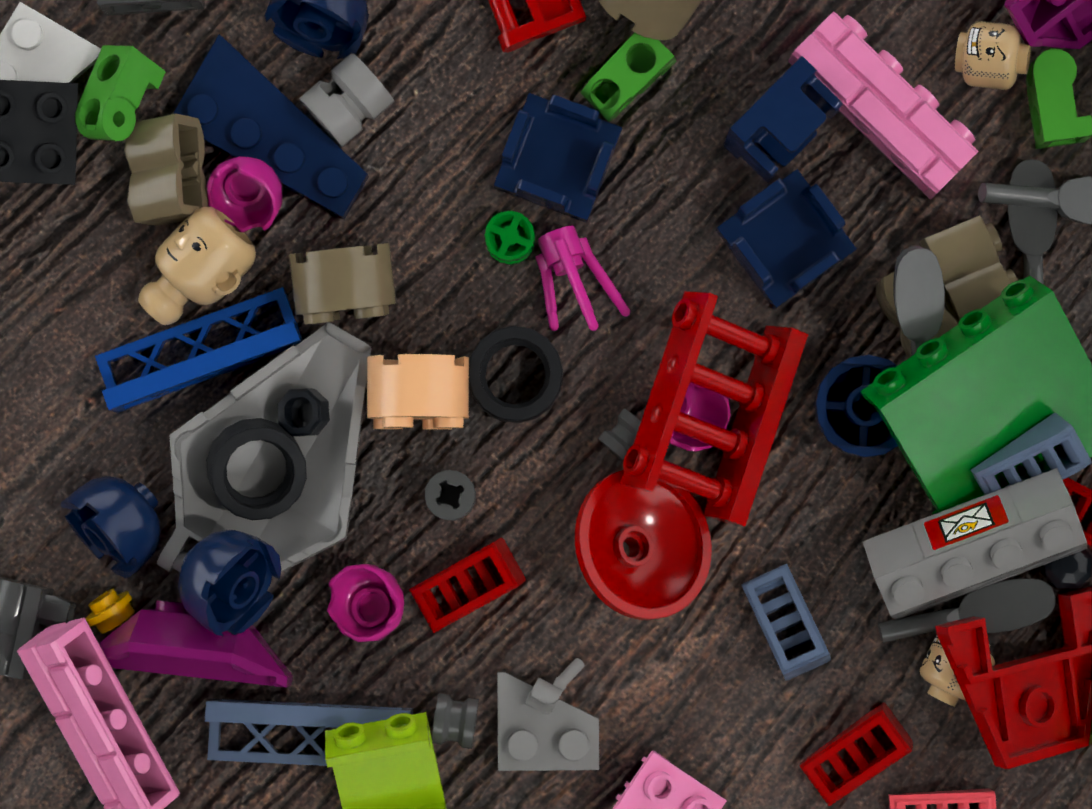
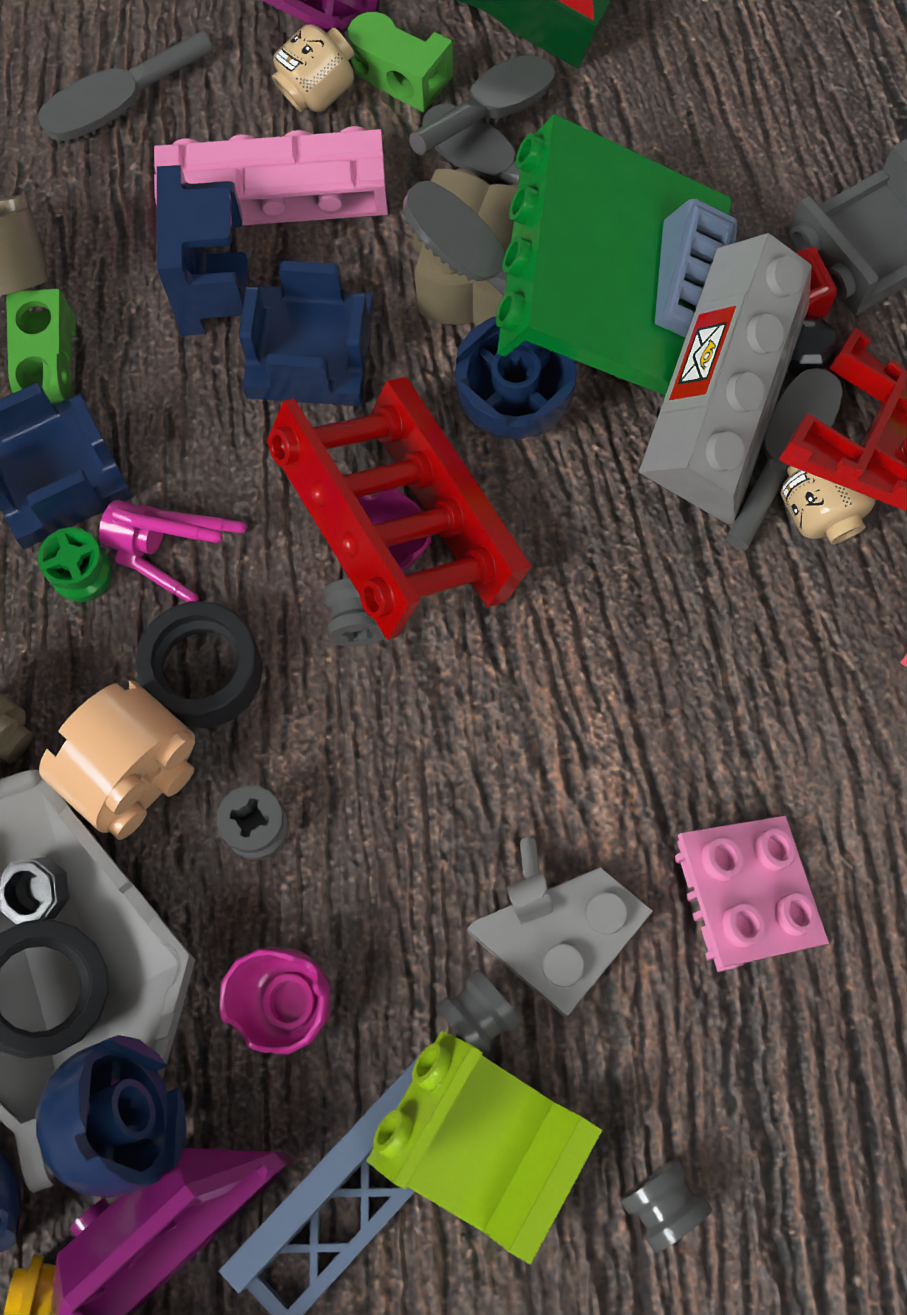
camera: 50 degrees left, 15 degrees down
(506, 566) = (340, 941): red slope -> none
(665, 541) = (465, 675): red dish -> none
(801, 663) = (660, 595): sand blue slope -> none
(868, 769) = (863, 634): red slope -> none

